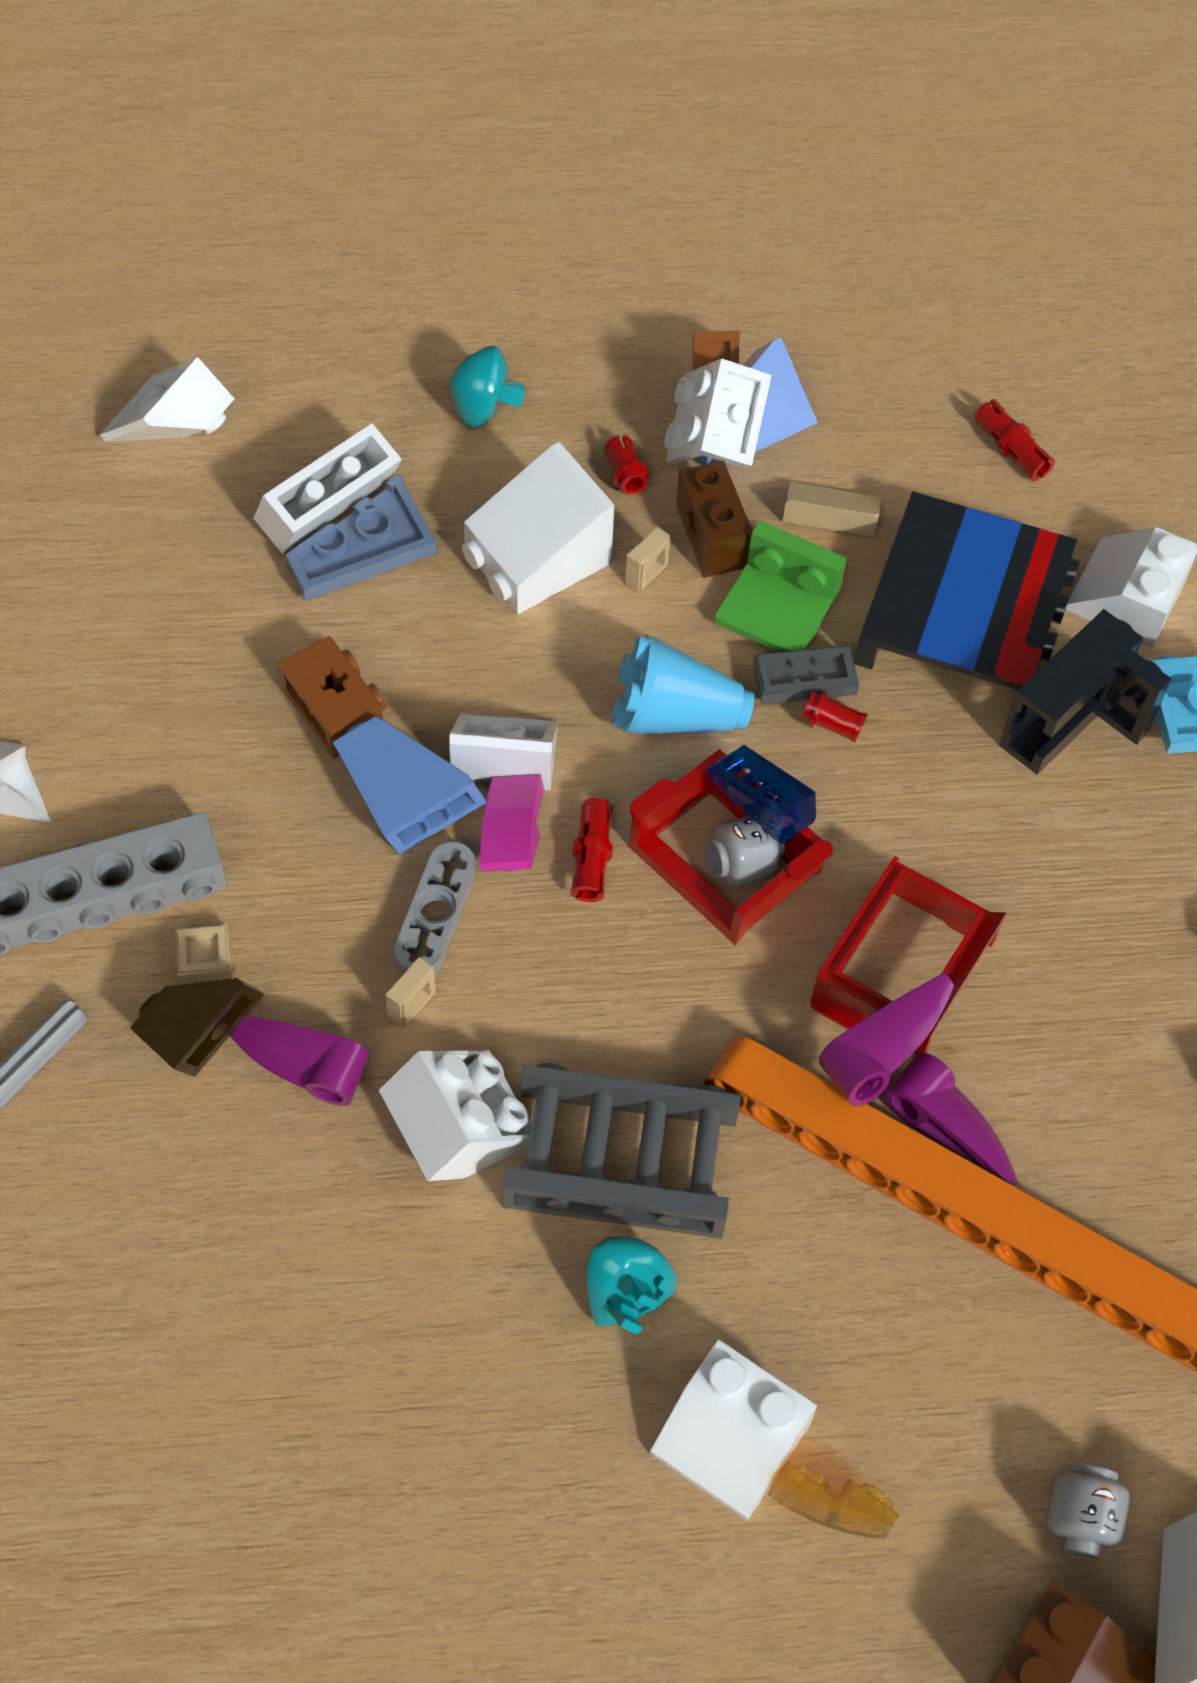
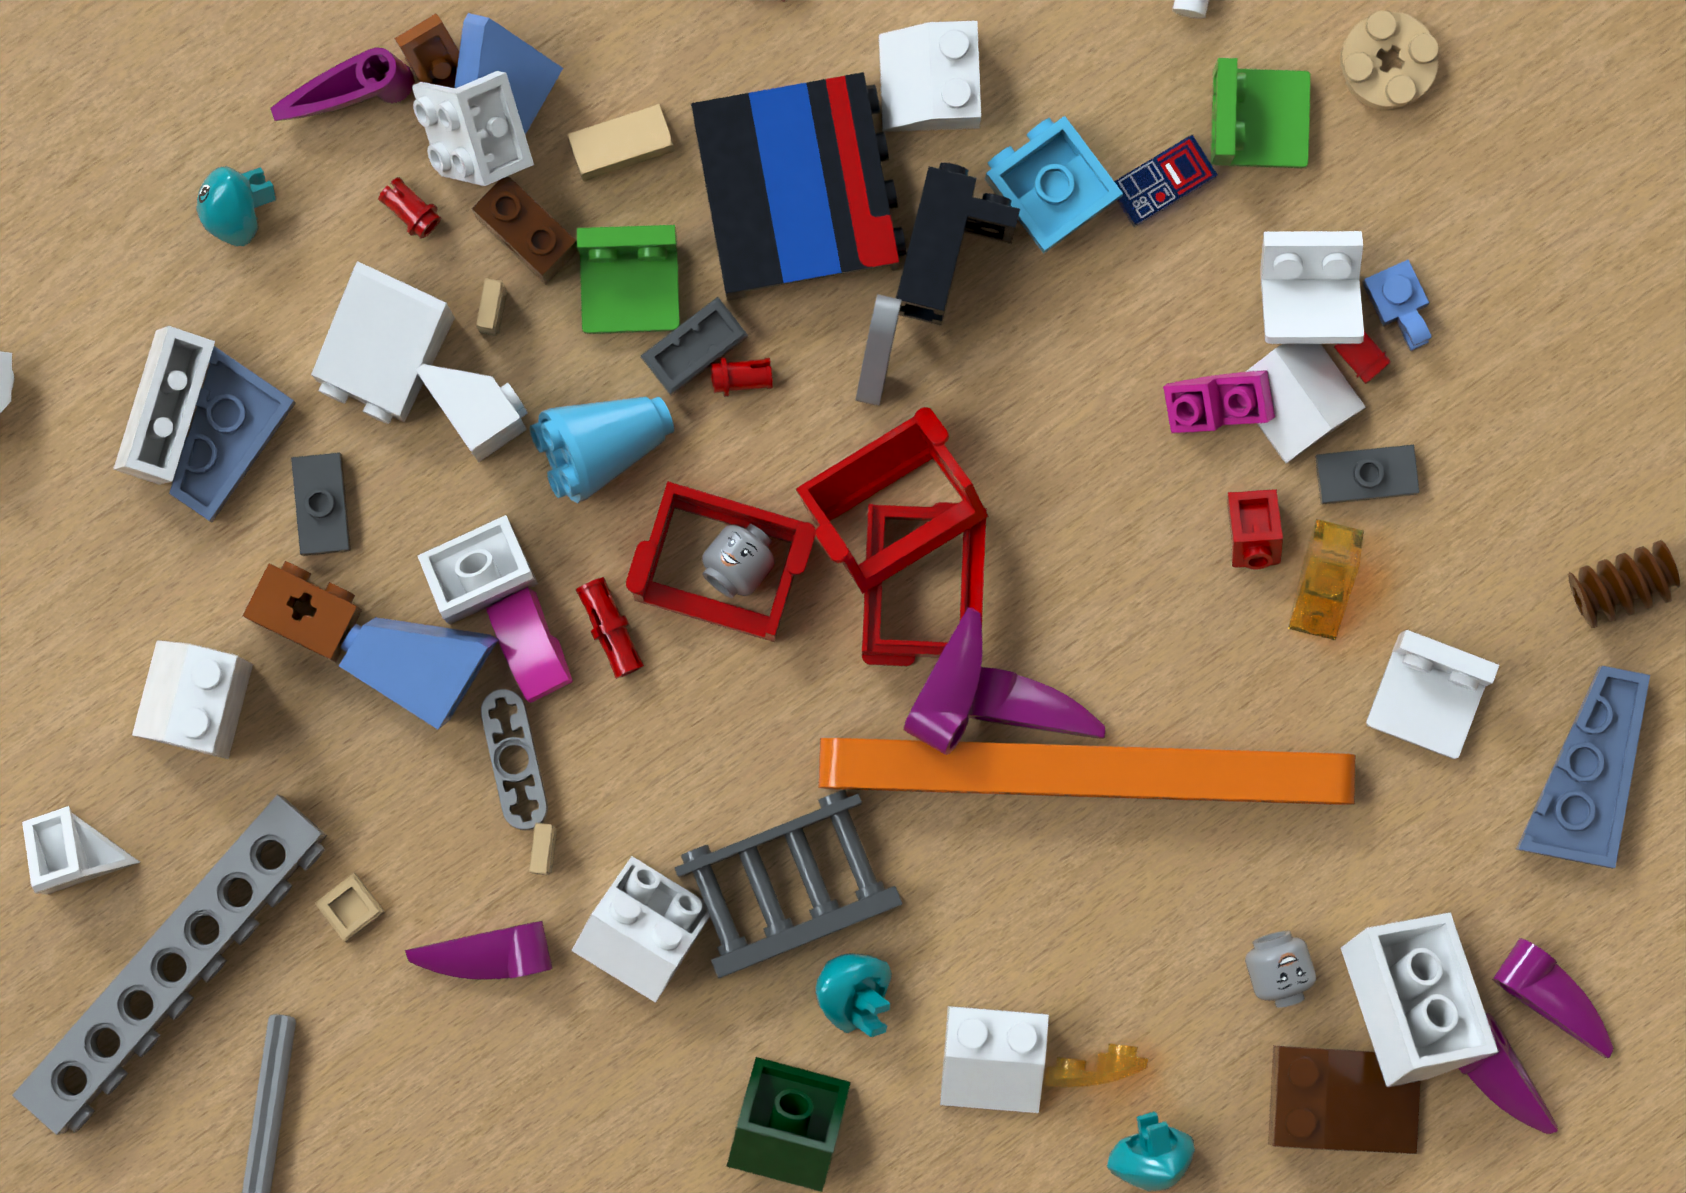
camera: 30 degrees left, 25 degrees up
(194, 1020) = (387, 980): dark brown slope -> none
(196, 706) = (193, 698): none -> white slope
(405, 633) = (320, 504): none -> dark grey plate
(482, 1376) = (788, 1124): none -> dark green slope
(588, 611) = (476, 407): none -> white slope
(637, 360) = (349, 85): none -> magenta piece
(781, 817) = (766, 523): clear blue slope -> none
(849, 1631) = (1154, 1156): none -> teal piece
(921, 844) = (873, 470): none -> red piece
(974, 737) = (878, 349): none -> light grey beam

